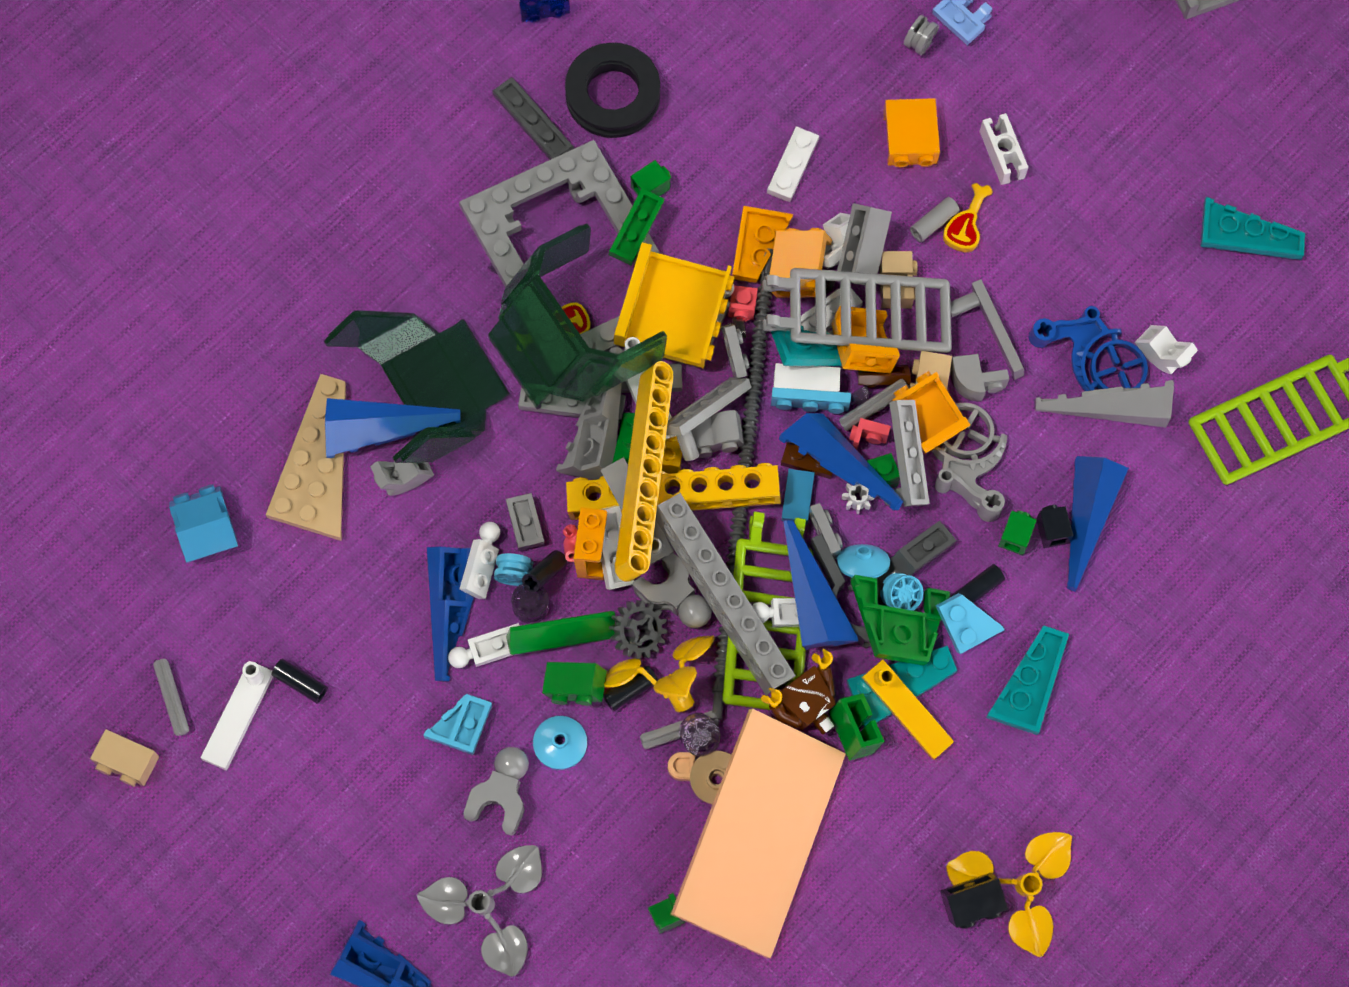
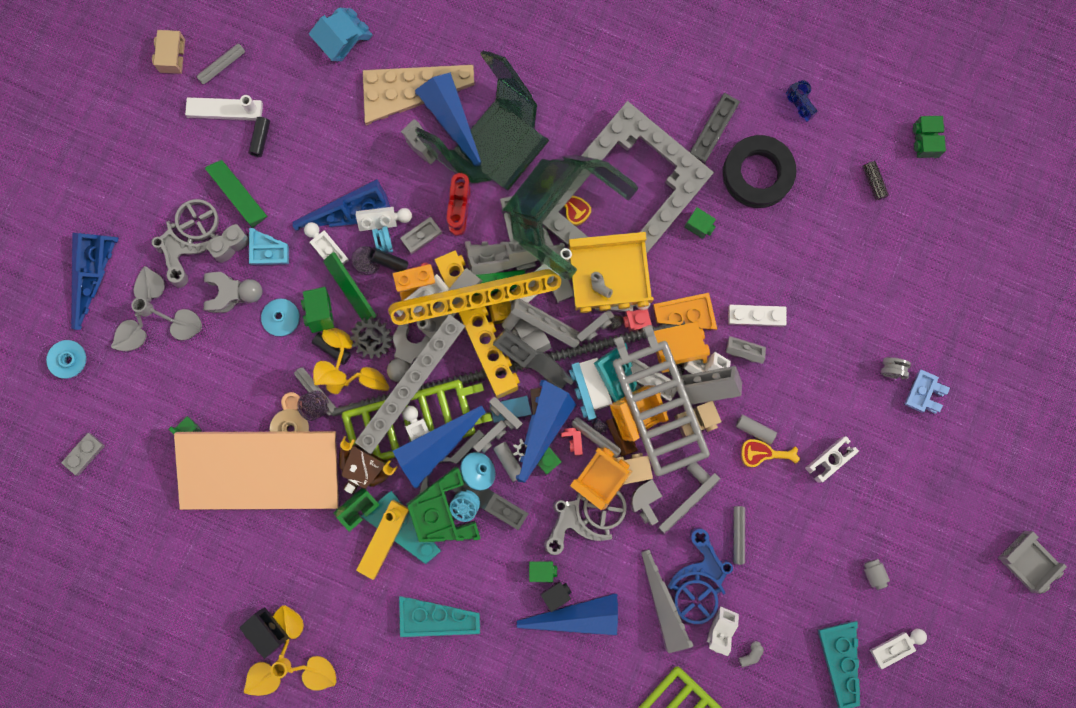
camera: 65 degrees right, 10 degrees up
(364, 739) = (236, 193): none -> green slope
(406, 845) = (175, 247): none -> light grey piece
(434, 774) = (225, 246): none -> light grey brick
(507, 455) = (458, 204): none -> red piece
(636, 226) = (659, 224): green plate -> none
(685, 325) = (599, 286): none -> light grey arm
(747, 439) = (528, 357): none -> dark grey piece
(794, 504) = (498, 408): none -> light grey plate
(831, 192) = (746, 350): none -> light grey plate
(864, 521) = (508, 460): none -> light grey piece
(909, 454) = (563, 474): light grey piece -> none
(912, 132) = (816, 389): light orange panel -> none
(966, 623) = (460, 559): medium azure wing -> none
(981, 584) = (491, 557): black piece -> none
(1056, 288) = (739, 535): none -> light grey axle
(1158, 154) = (876, 574): none -> light grey brick
(1208, 328) = (754, 656): none -> light grey arm
(1252, 166) = (897, 647): none -> white plate

